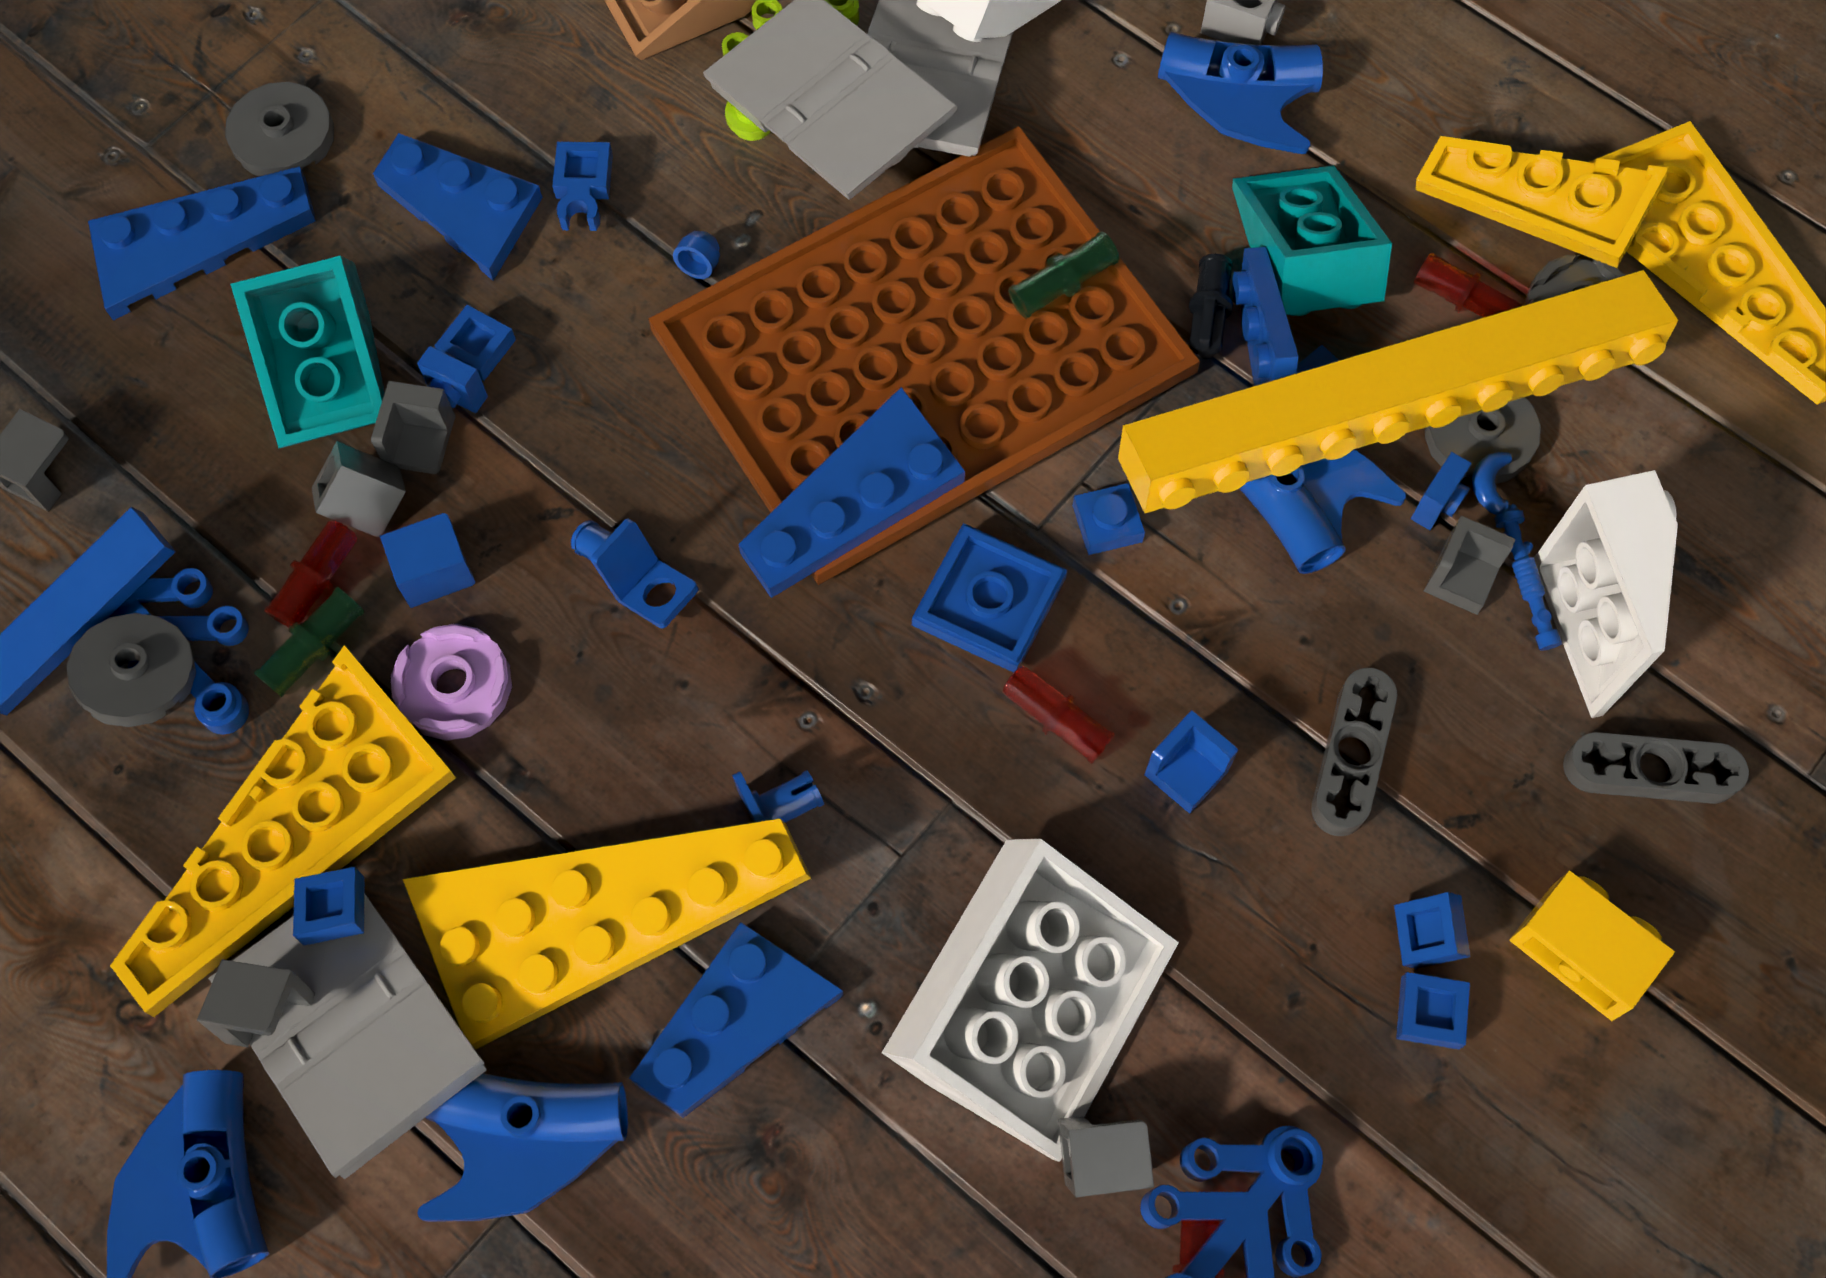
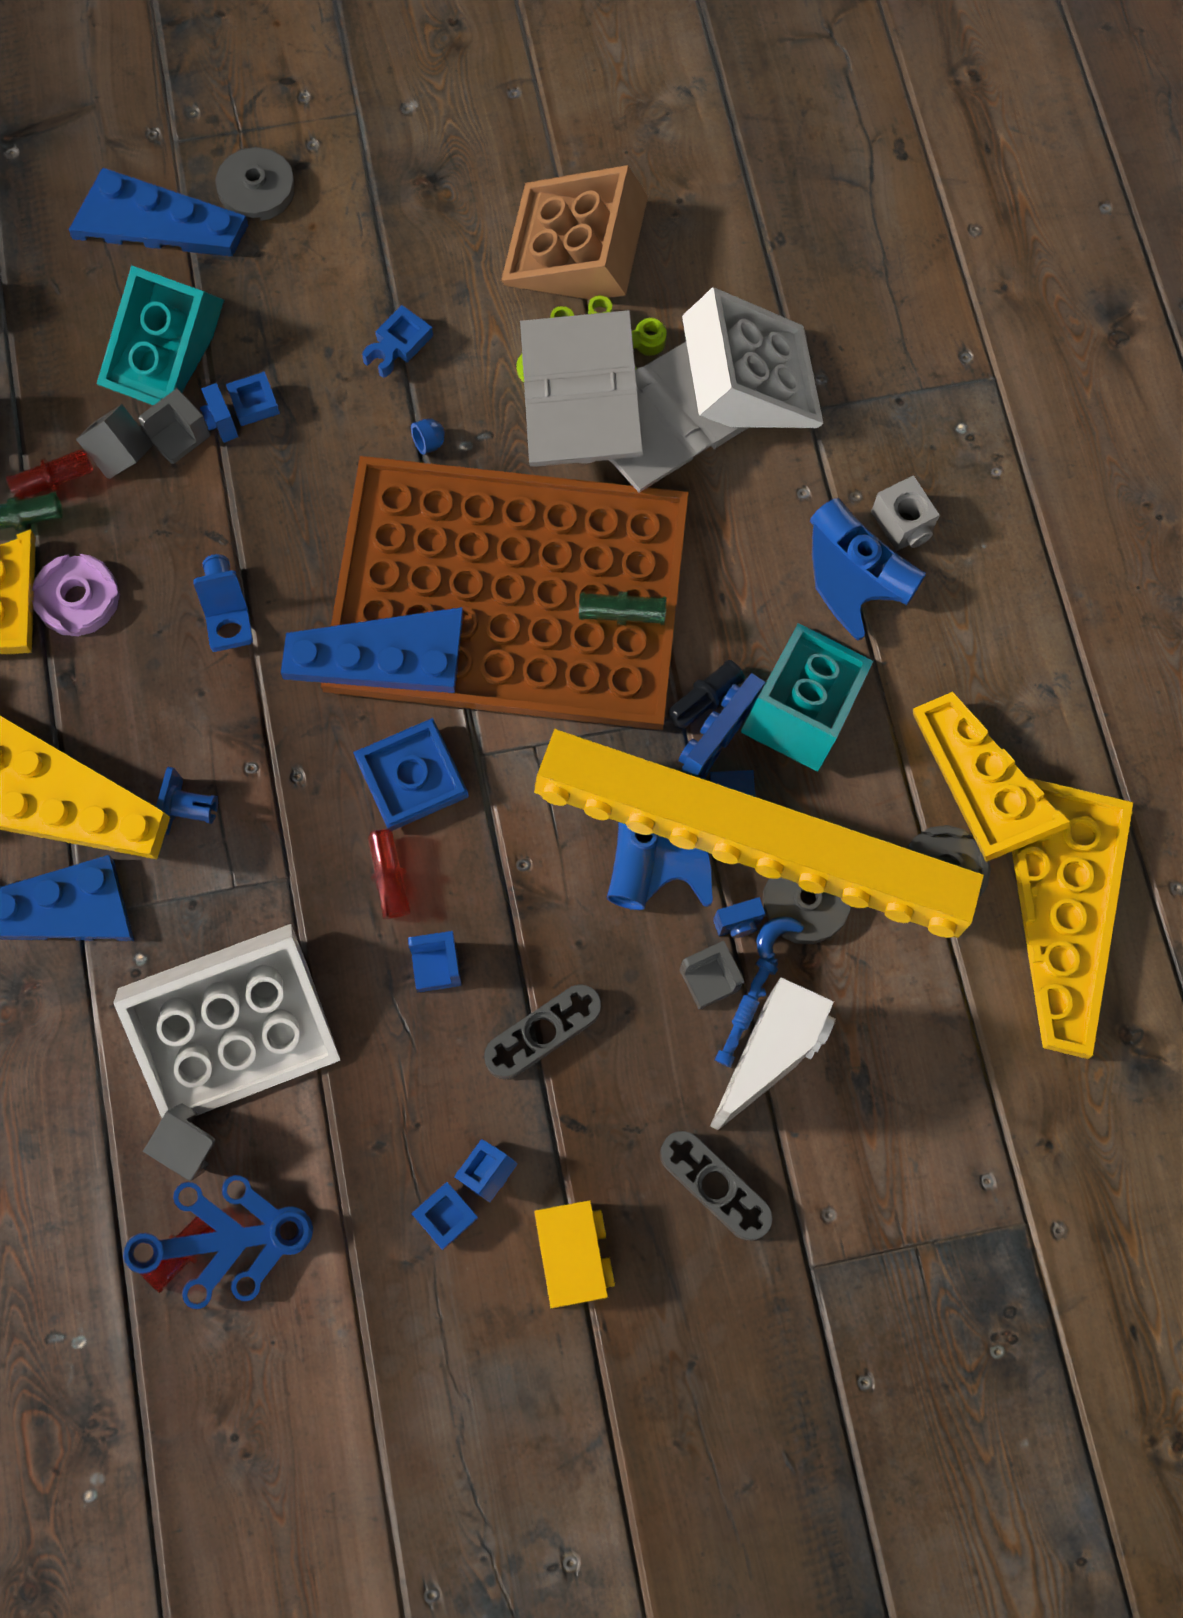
camera: 35 degrees right, 5 degrees up
(427, 560) = (113, 511): blue panel -> none
(464, 200) = (321, 302): blue wing -> none
(1108, 519) = (520, 780): blue plate -> none
(1462, 288) = (879, 804): clear red axle -> none

